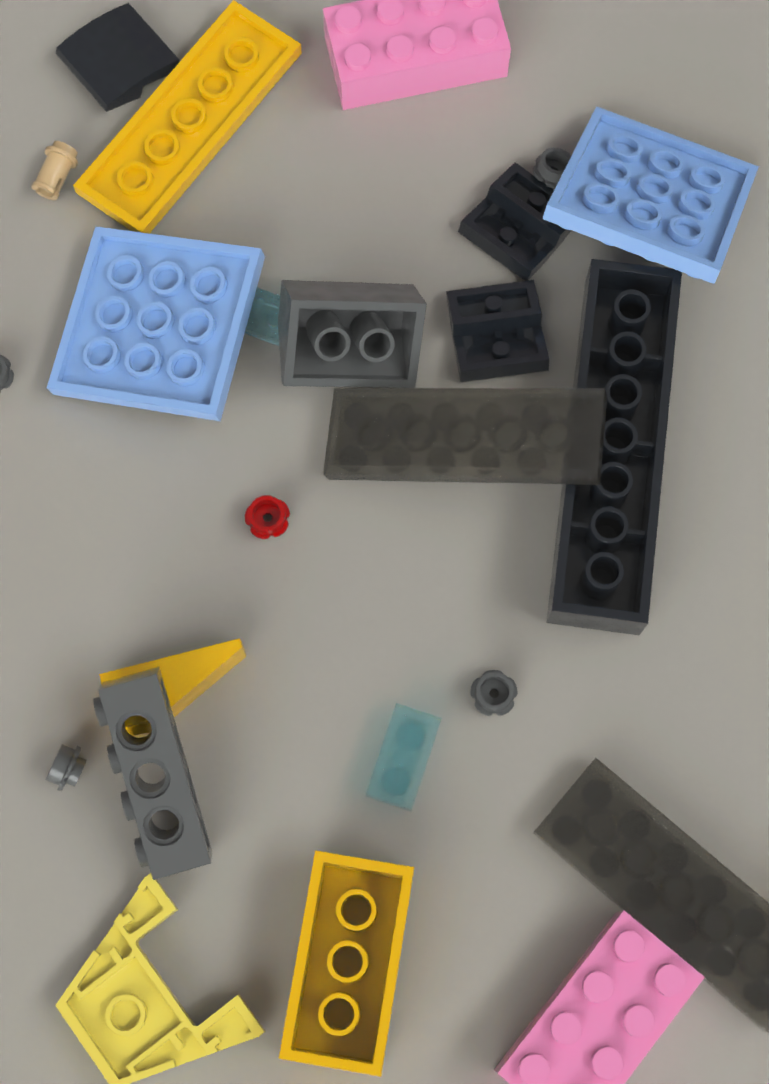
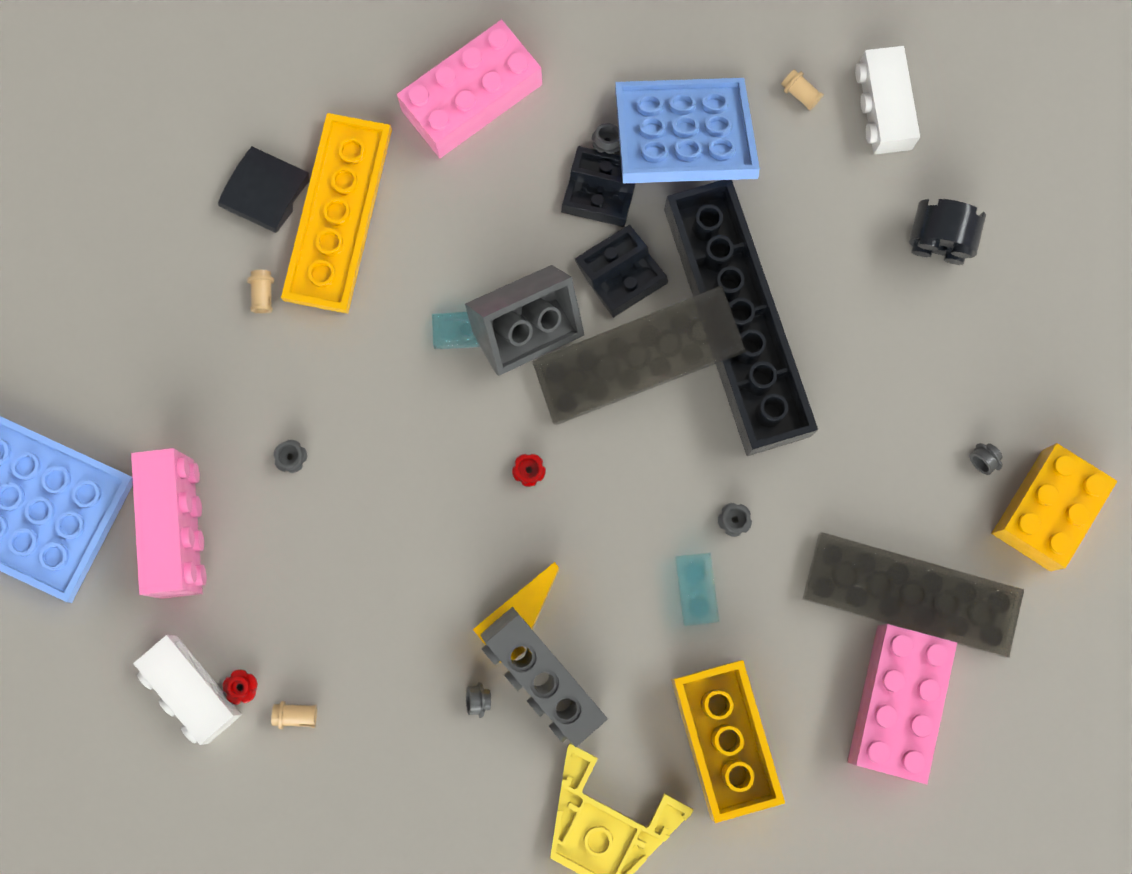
camera: 25 degrees left, 5 degrees up
(157, 323) = (389, 369): light blue plate -> none

